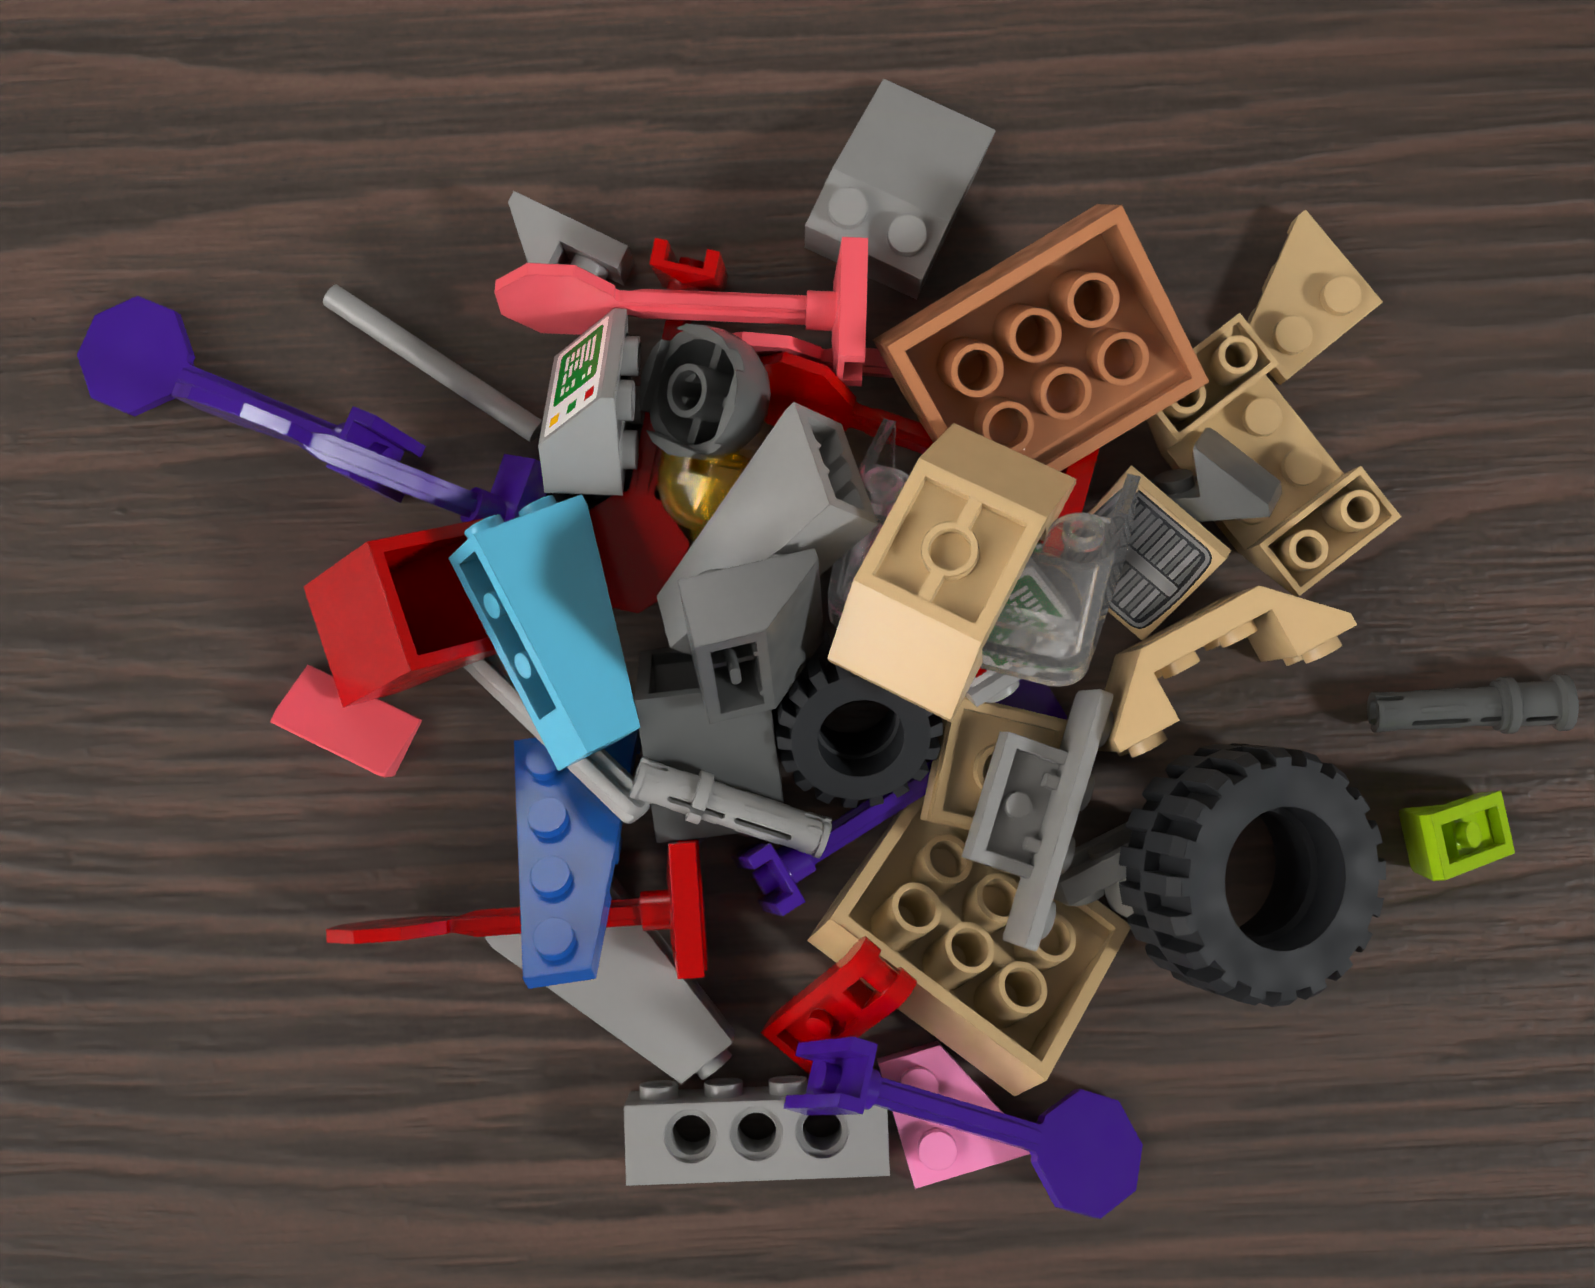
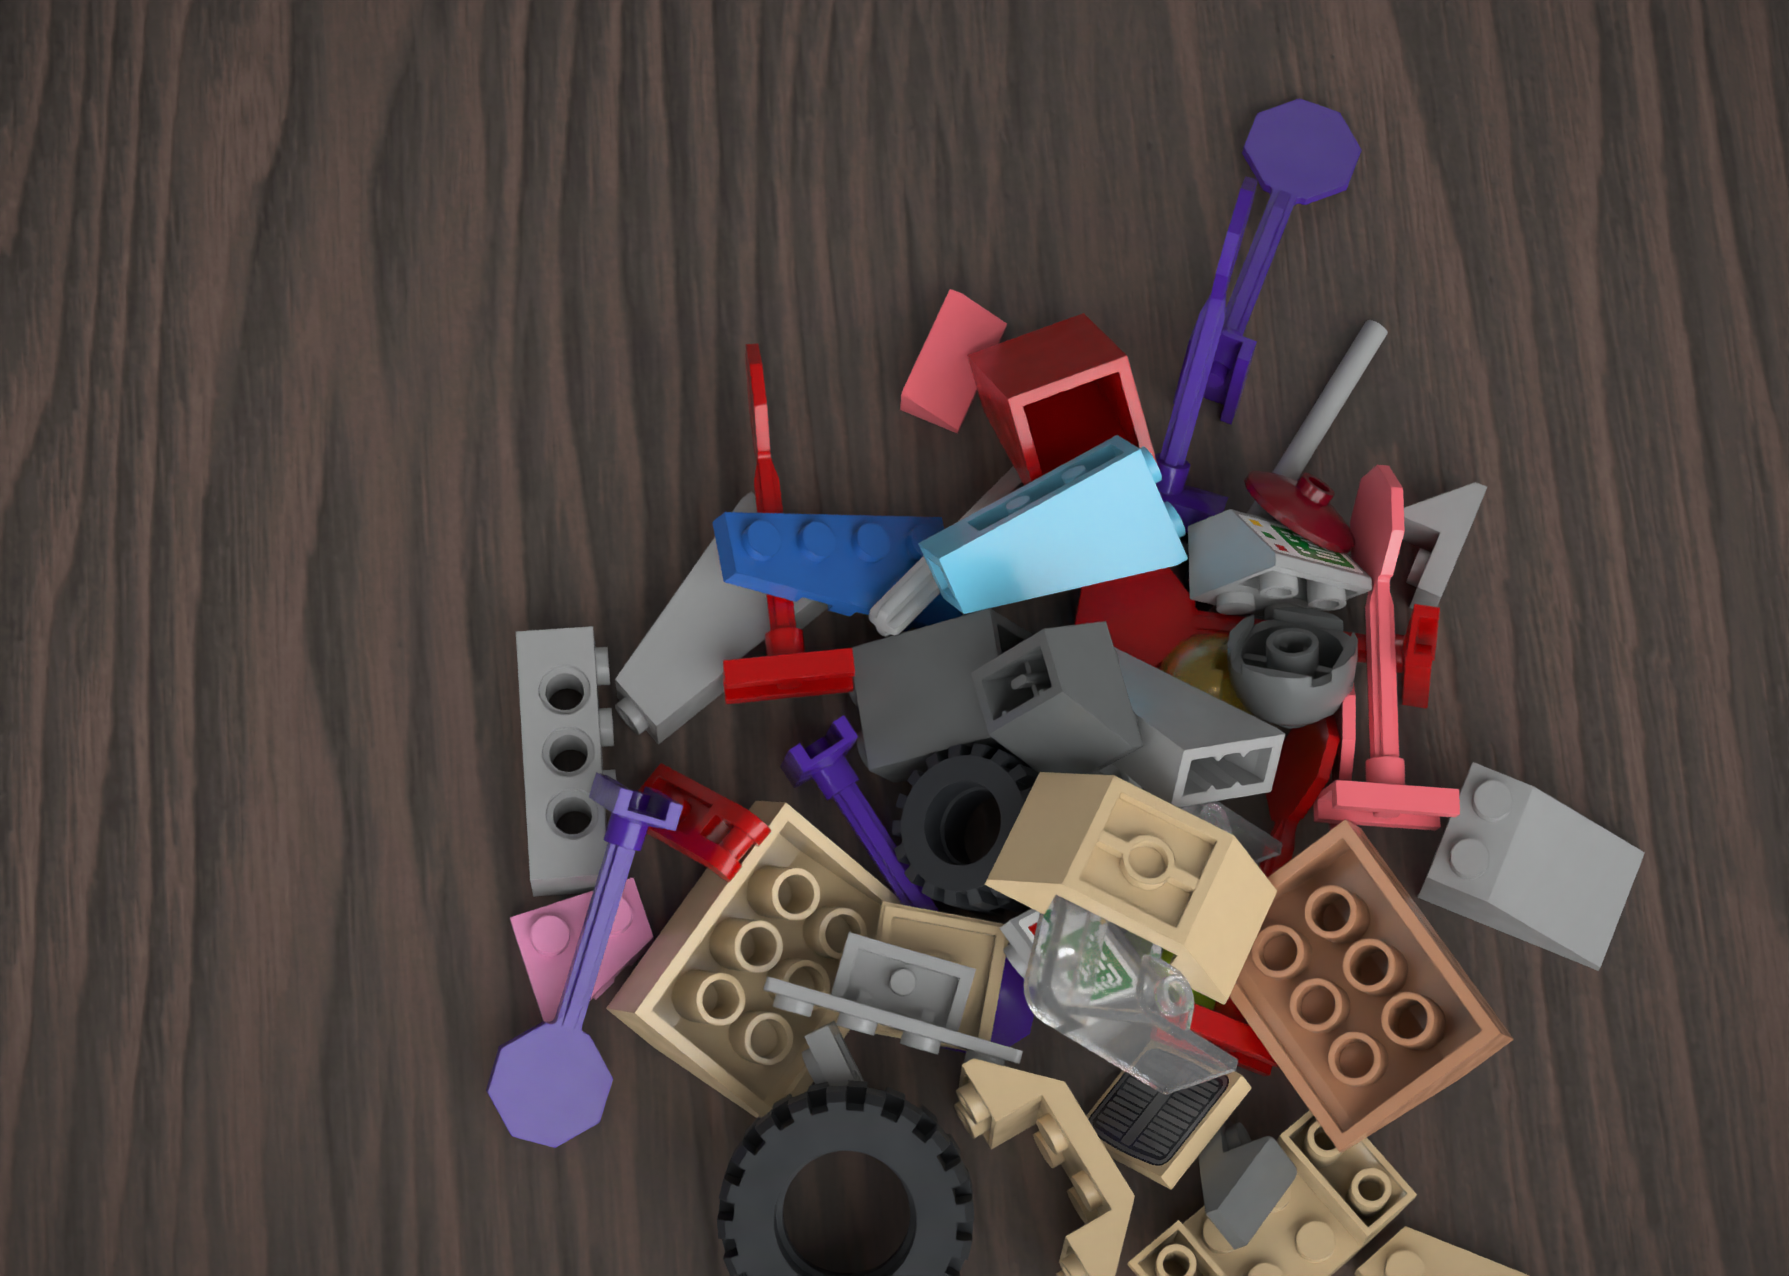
camera: 85 degrees right, 15 degrees down
(530, 377) = (1302, 508): none -> dark red dish
(720, 804) = (885, 719): light grey pin -> none

